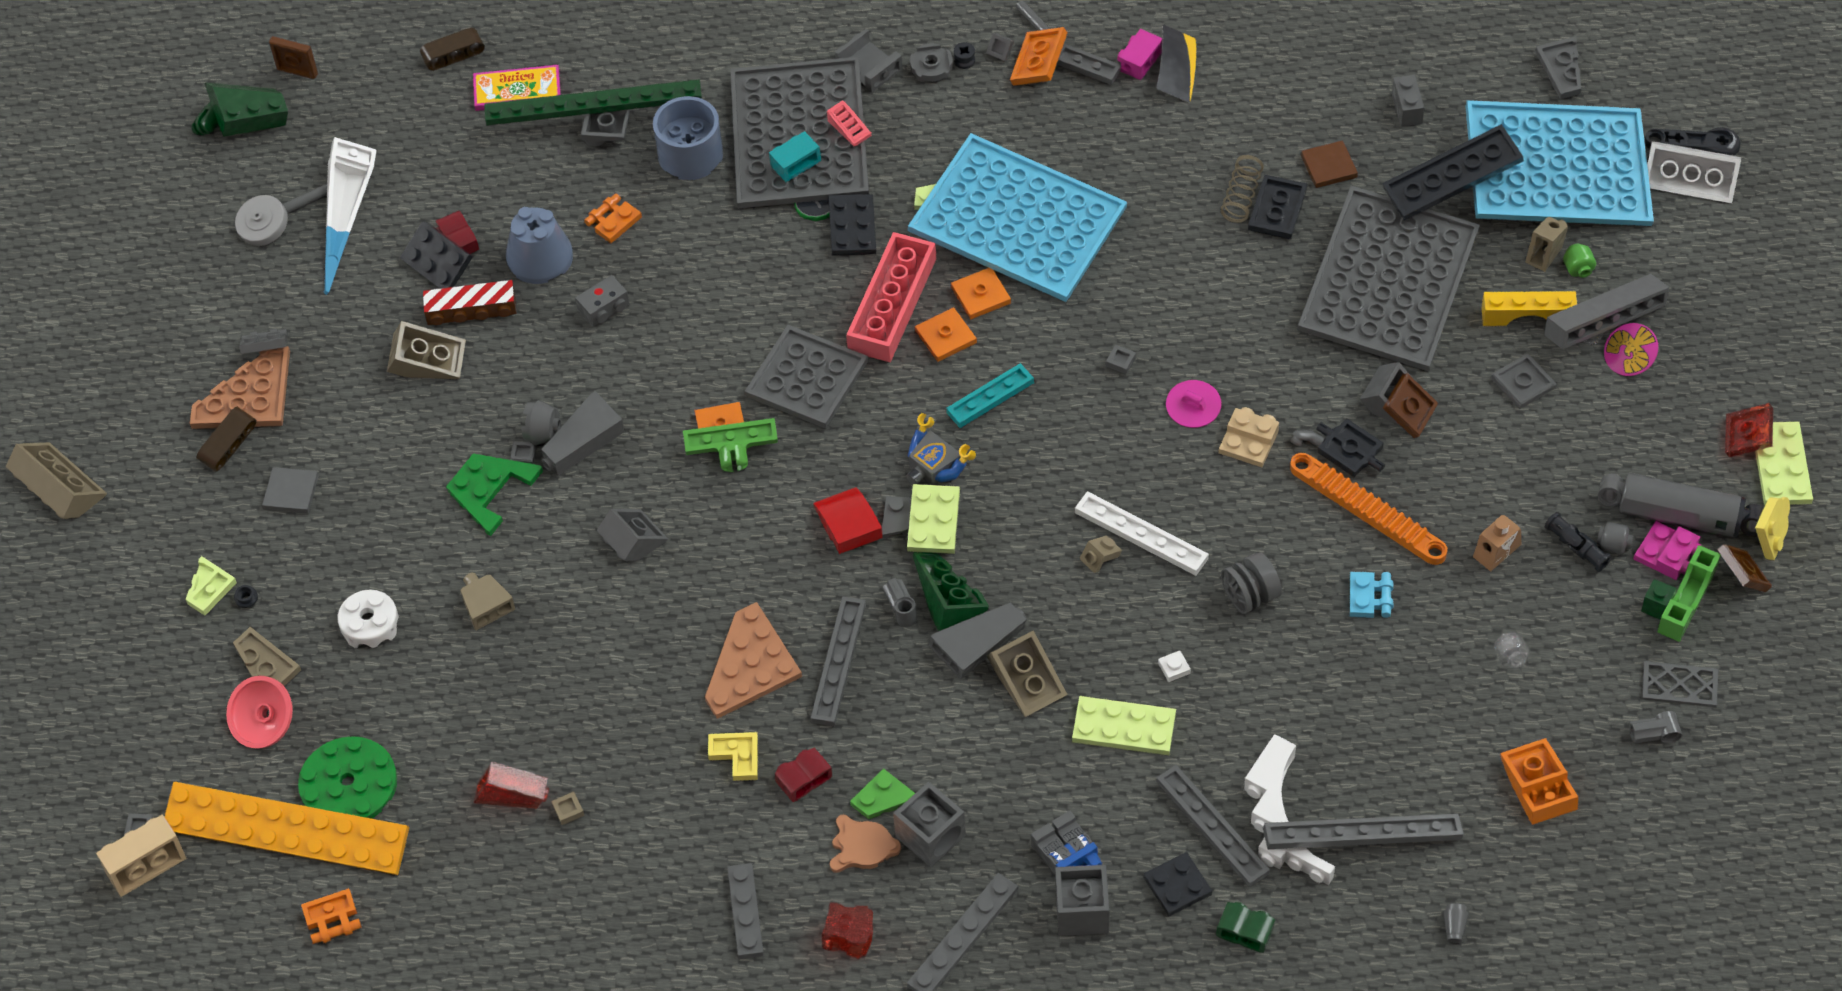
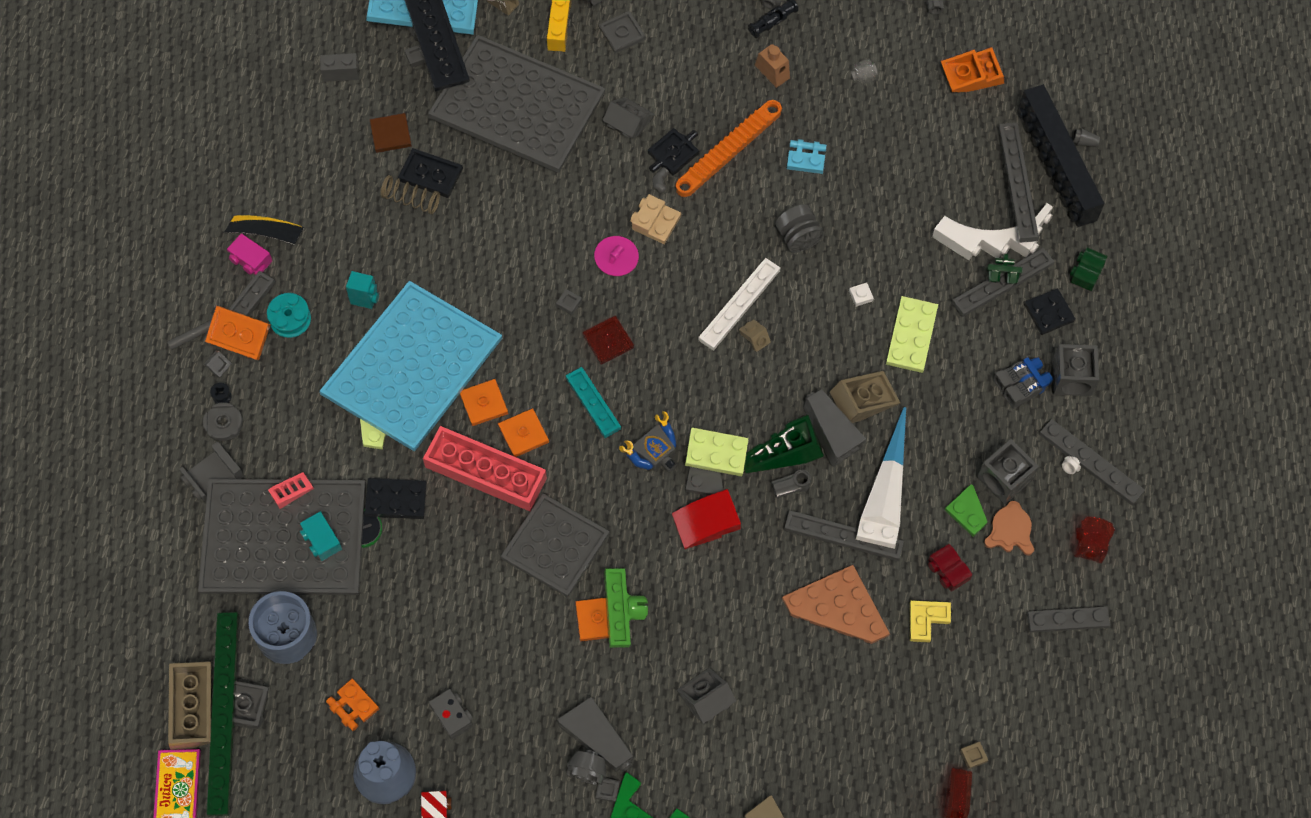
camera: 90 degrees left, 10 degrees up
(602, 72) = (189, 705): none -> dark tan slope
(870, 694) = (882, 511): none -> white plate
(955, 910) = (1071, 465): none -> white plate
(1068, 99) = (289, 315): none -> teal wheel
(1074, 403) = (608, 340): none -> clear red plate
(1103, 155) = (362, 290): none -> teal piece
(1225, 813) = (995, 270): none -> dark green hips
(1410, 405) = (643, 104): reddish brown tile -> none
(1412, 881) = (1060, 156): none -> black brick

